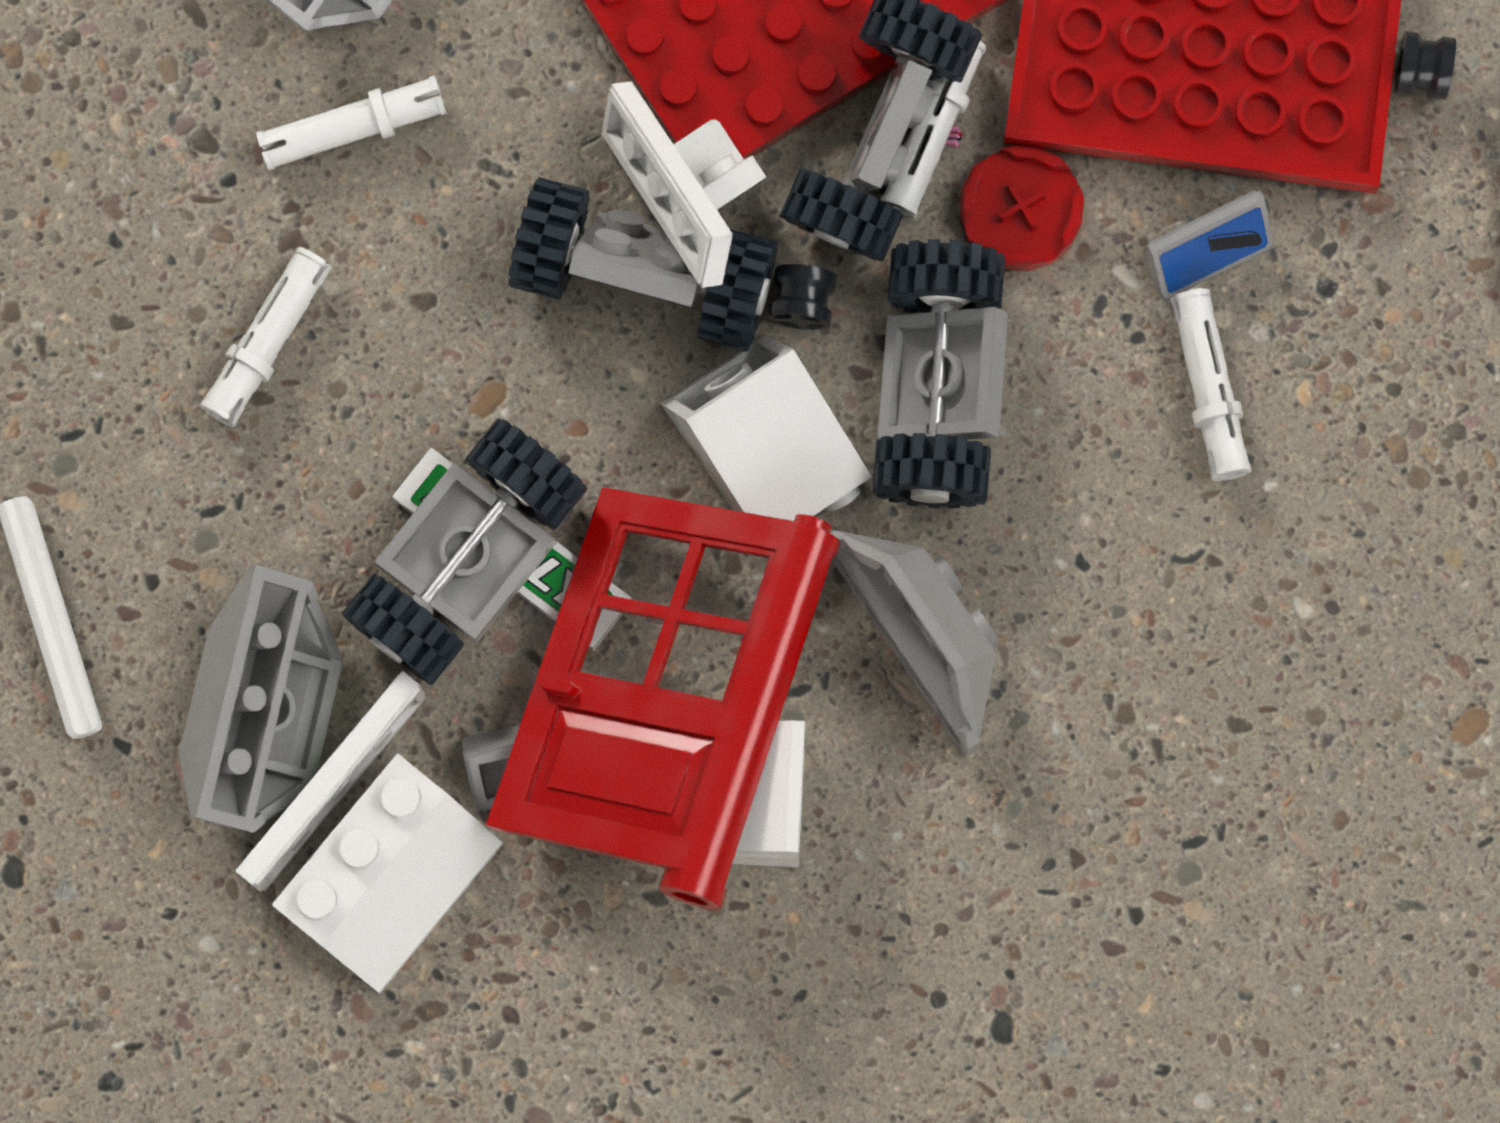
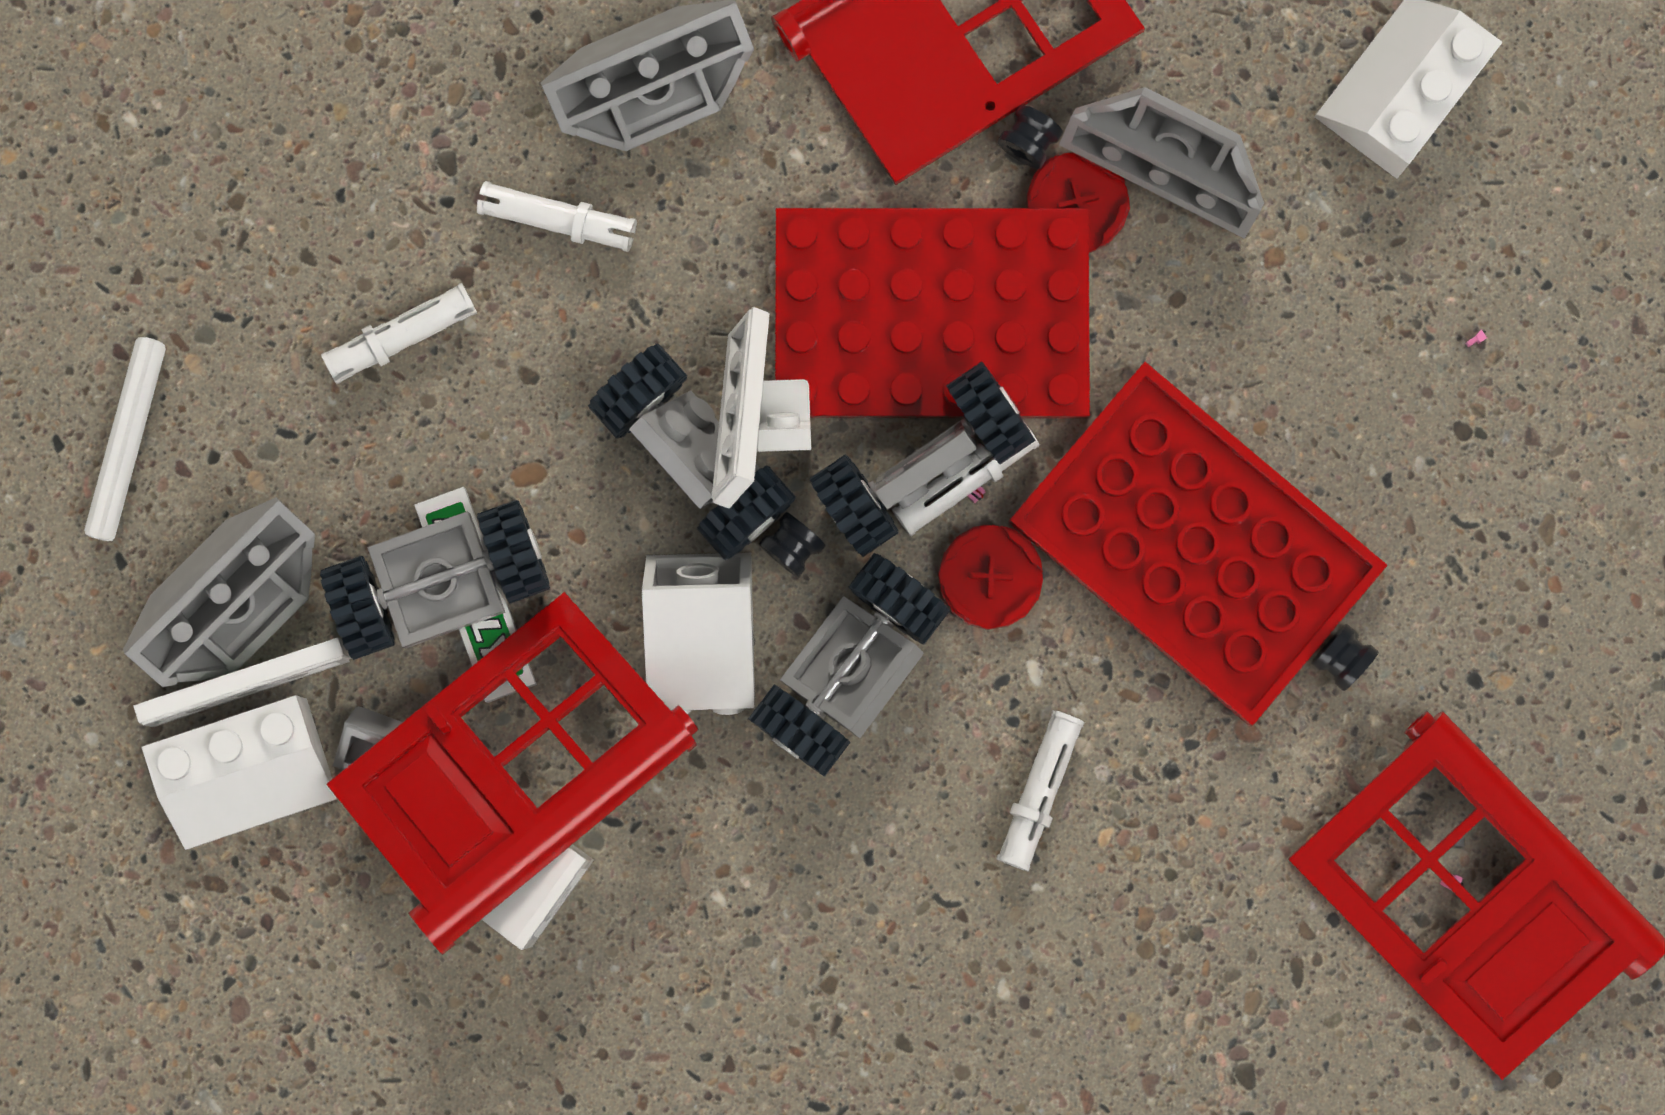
camera: 25 degrees right, 5 degrees up
(925, 627) = (725, 838): light grey wedge -> none
(1209, 245) = (1105, 690): slope -> none

